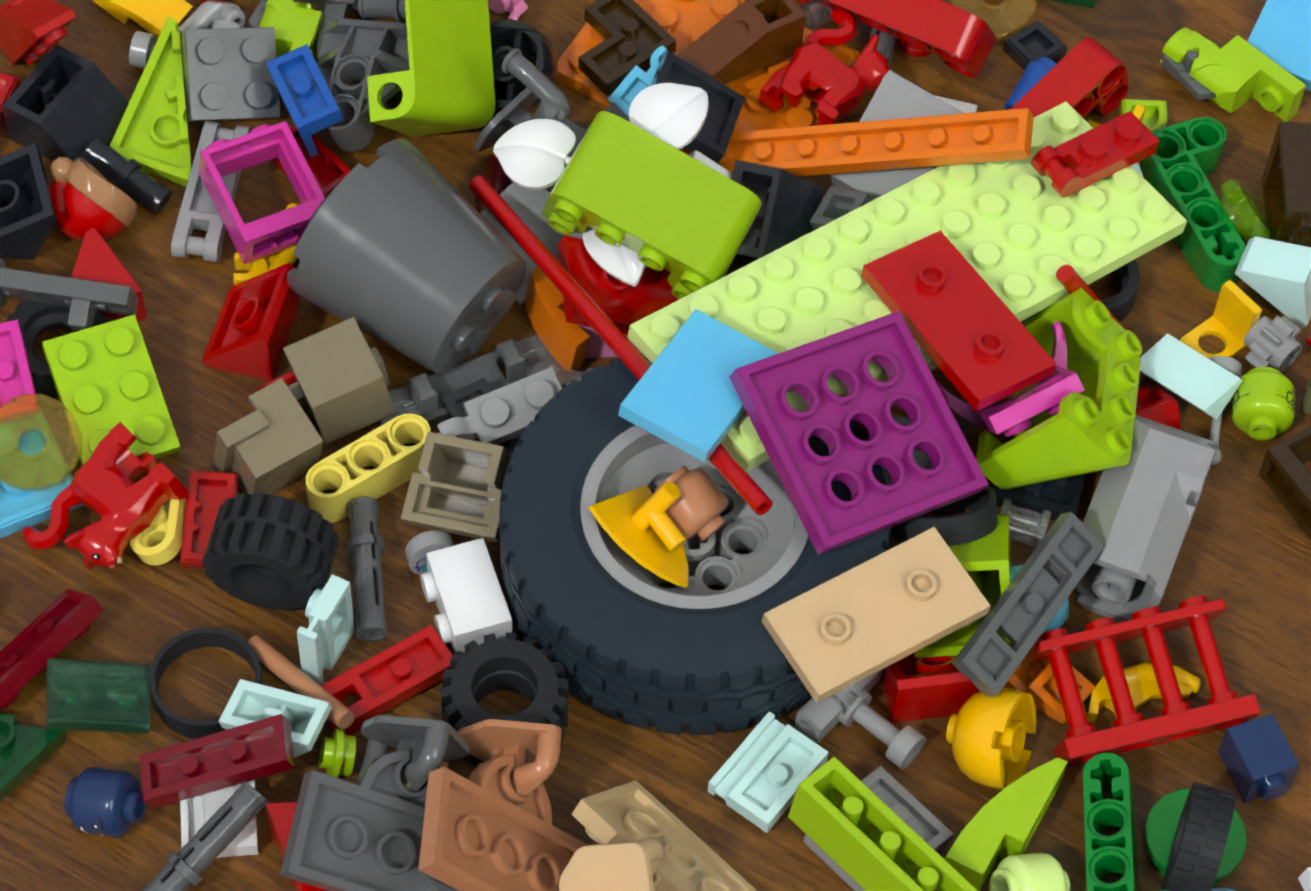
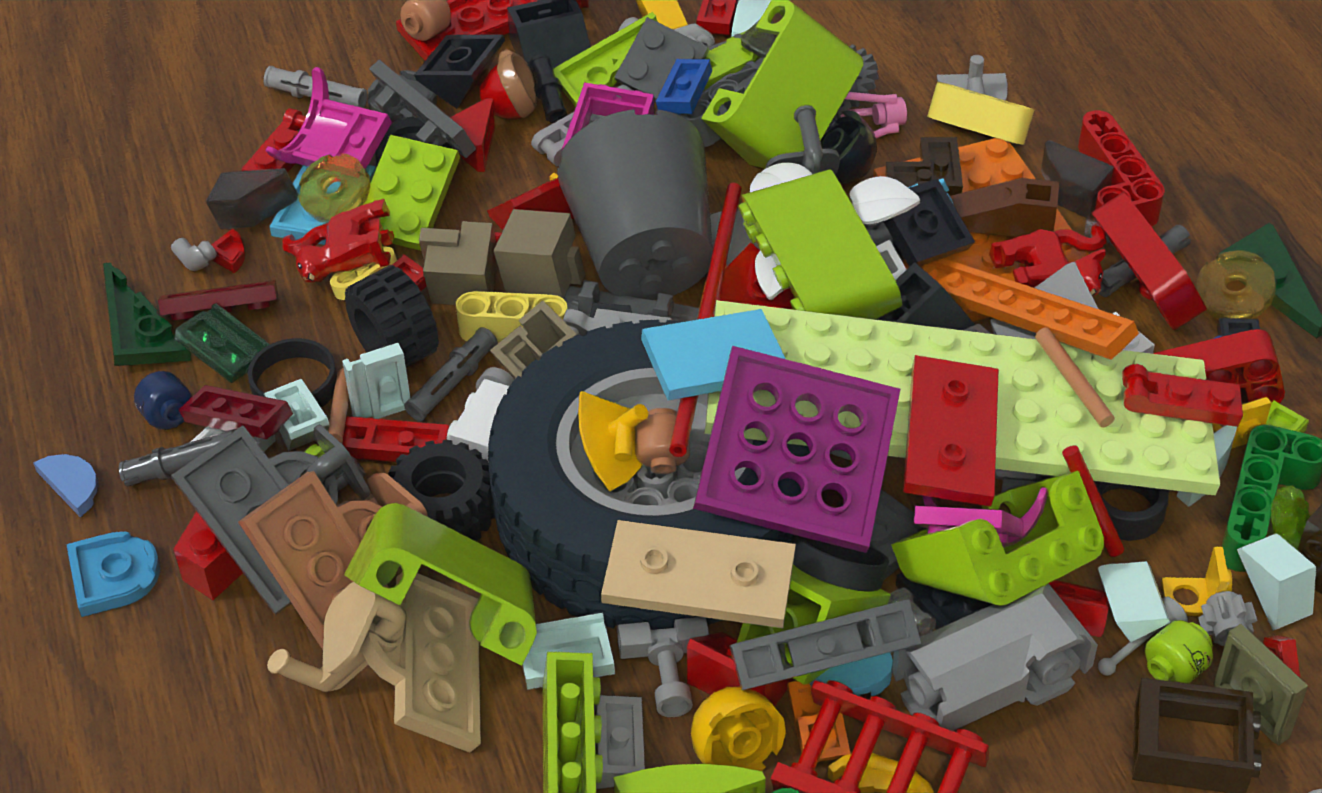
camera: 45 degrees right, 10 degrees down
(599, 777) = (405, 538): none -> lime windscreen
(998, 194) = (1074, 377): none -> nougat bar

